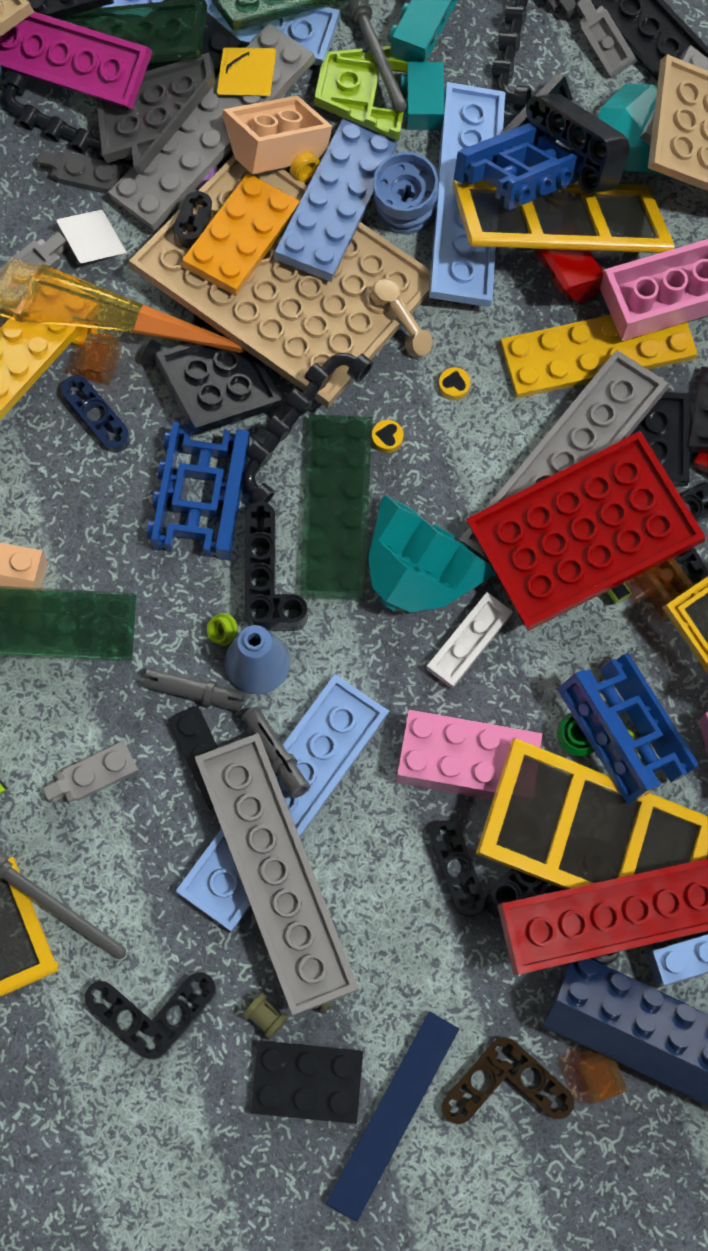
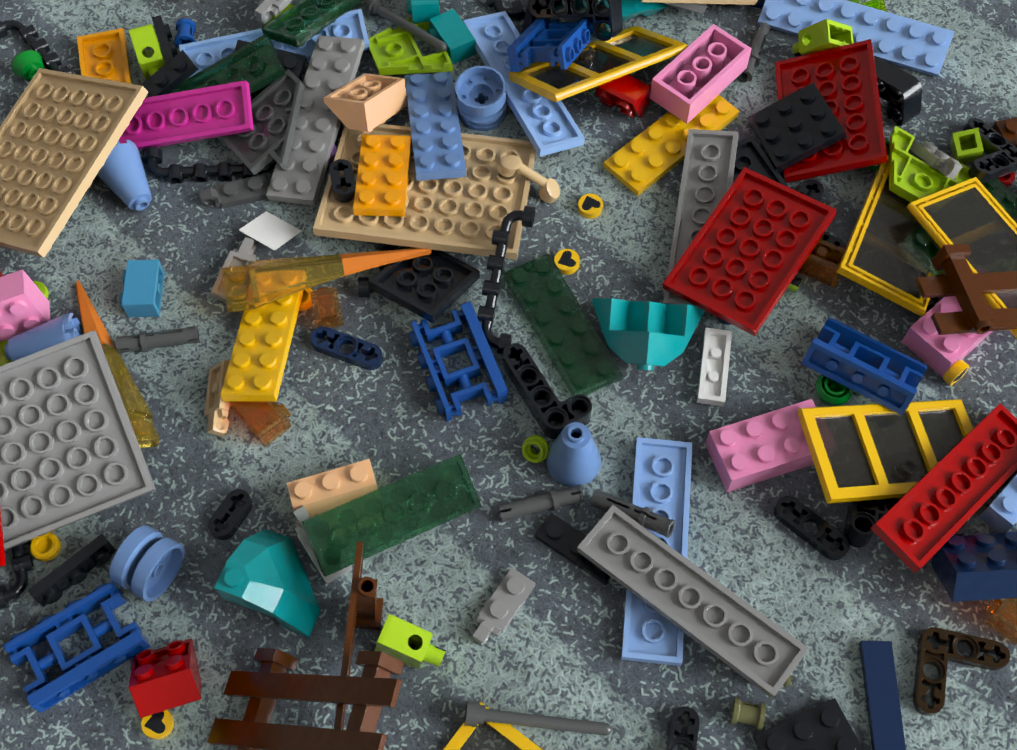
camera: 25 degrees left, 10 degrees down
(246, 71) = (322, 70): yellow sticker -> none
(304, 166) = (398, 115): yellow tile -> none

